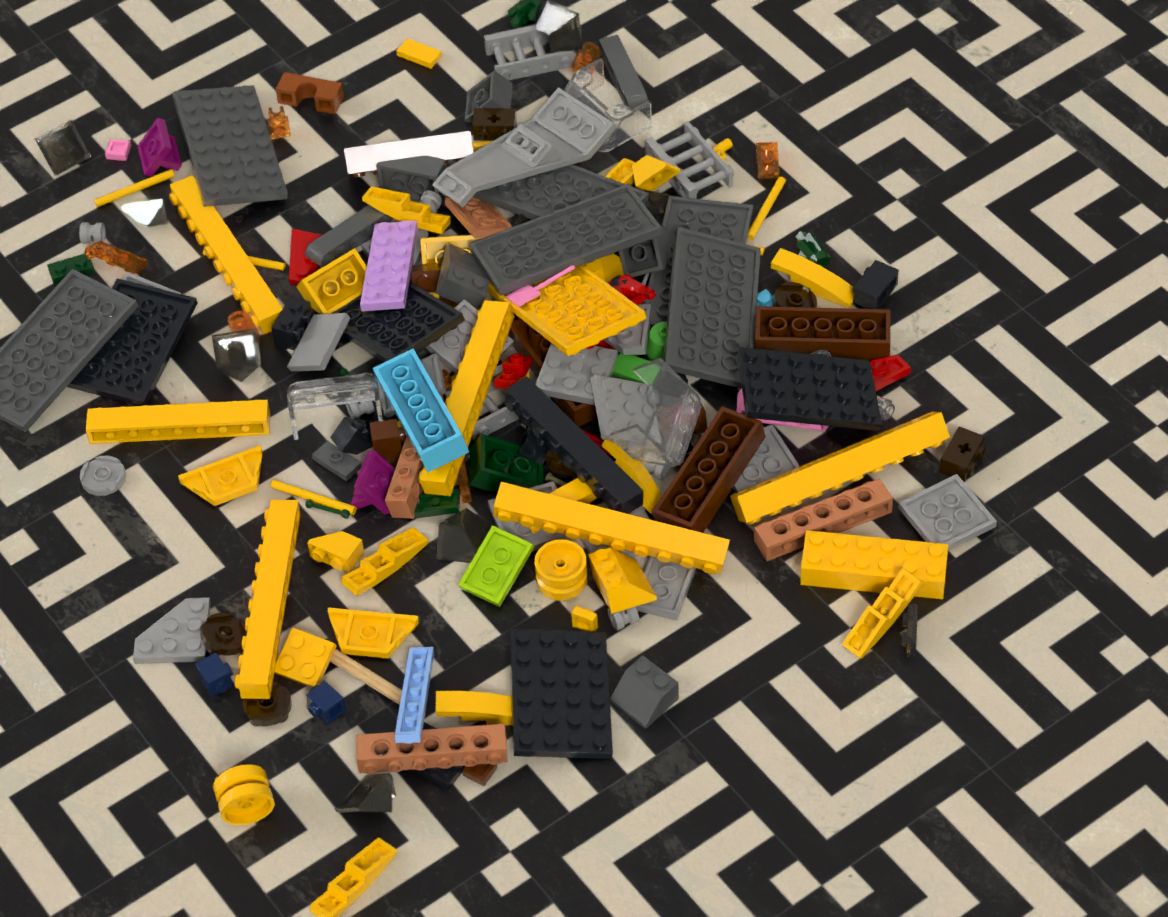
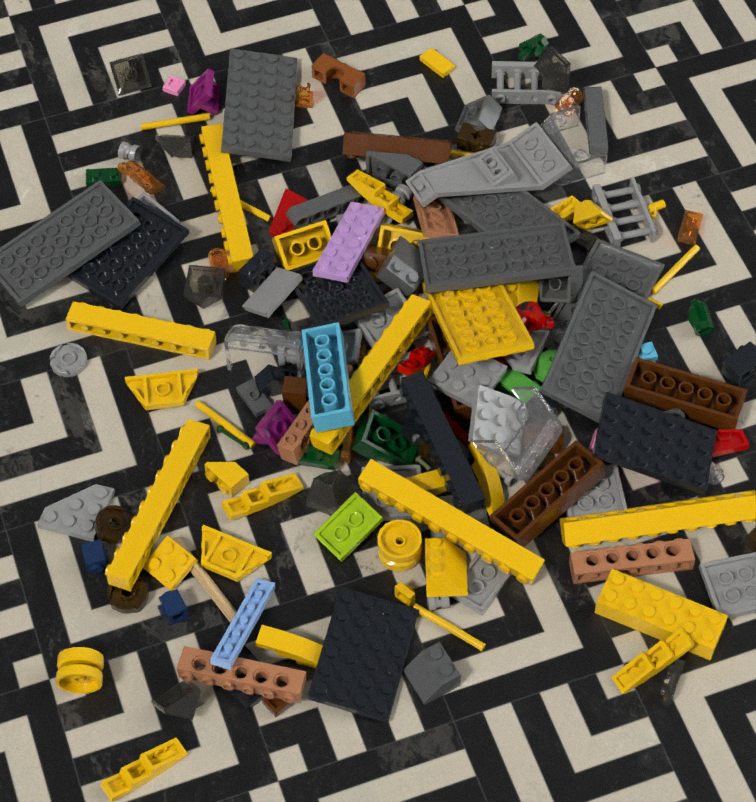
camera: 15 degrees right, 5 degrees up
(528, 293) = (448, 297): bright pink piece -> none
(646, 641) = (449, 627): none -> yellow bar
(795, 291) = (673, 349): dark brown plate -> none
(811, 275) = (694, 341): yellow slope -> none

